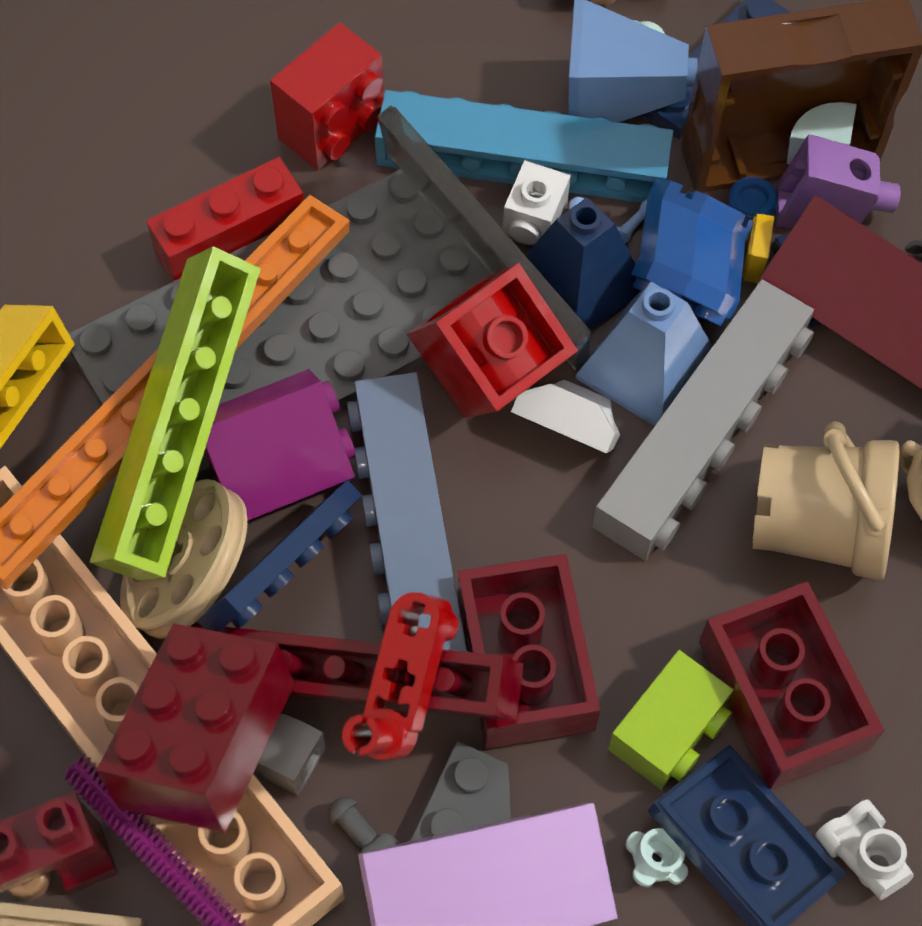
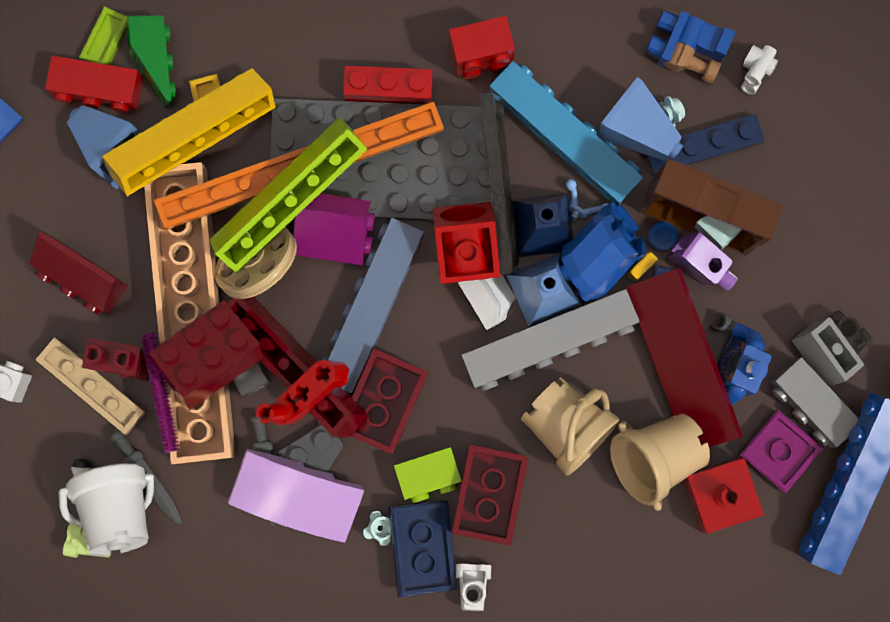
camera: 35 degrees right, 20 degrees up
(272, 570) = (289, 294): dark blue plate -> none
(535, 202) = (547, 172): white brick -> none

